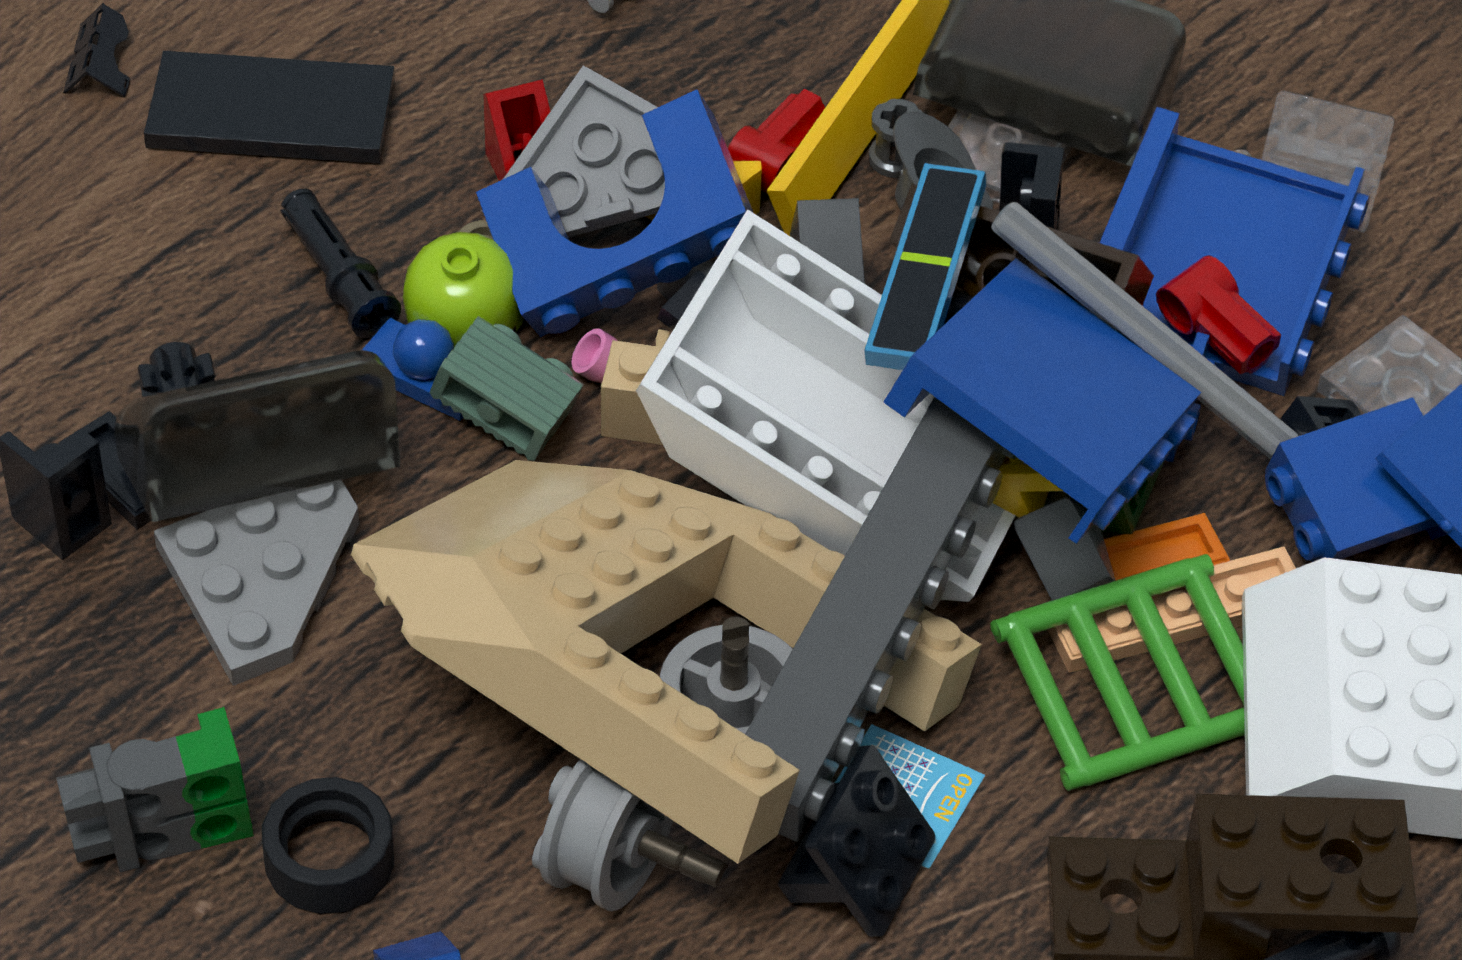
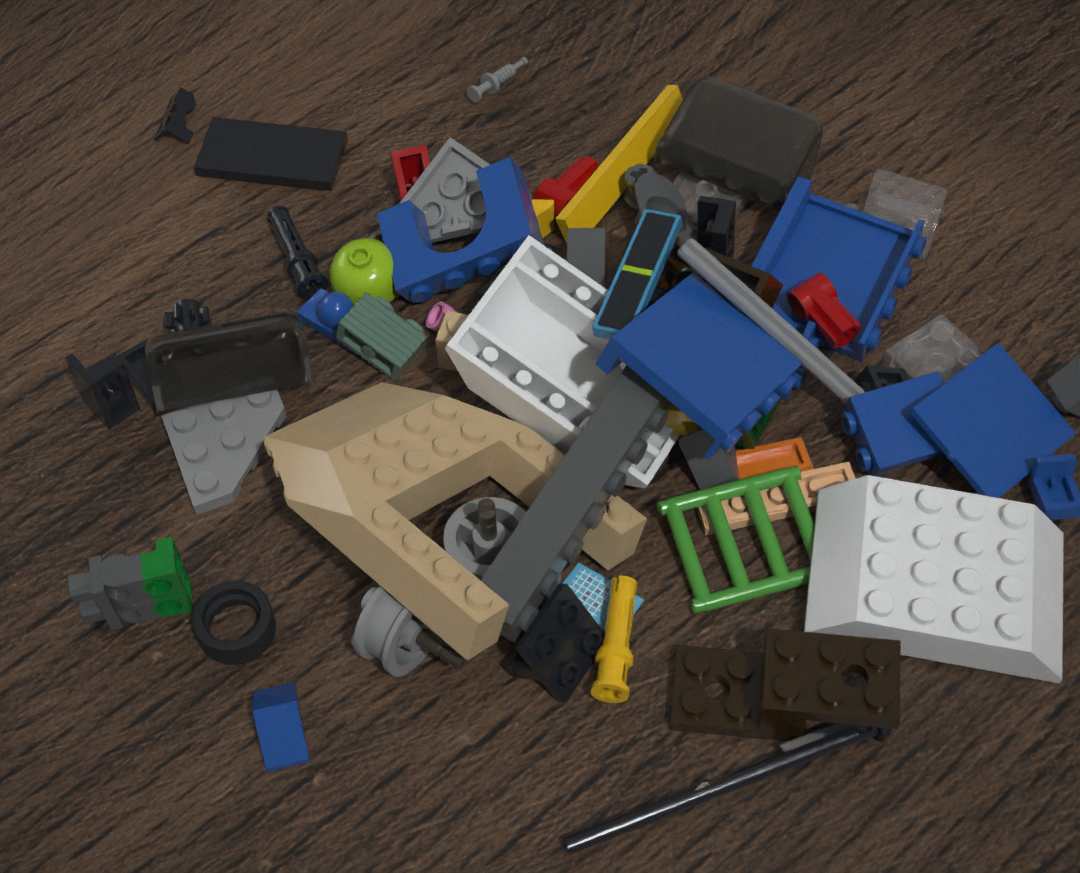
camera: 10 degrees right, 5 degrees up
(952, 858) = (614, 655): none -> yellow pin

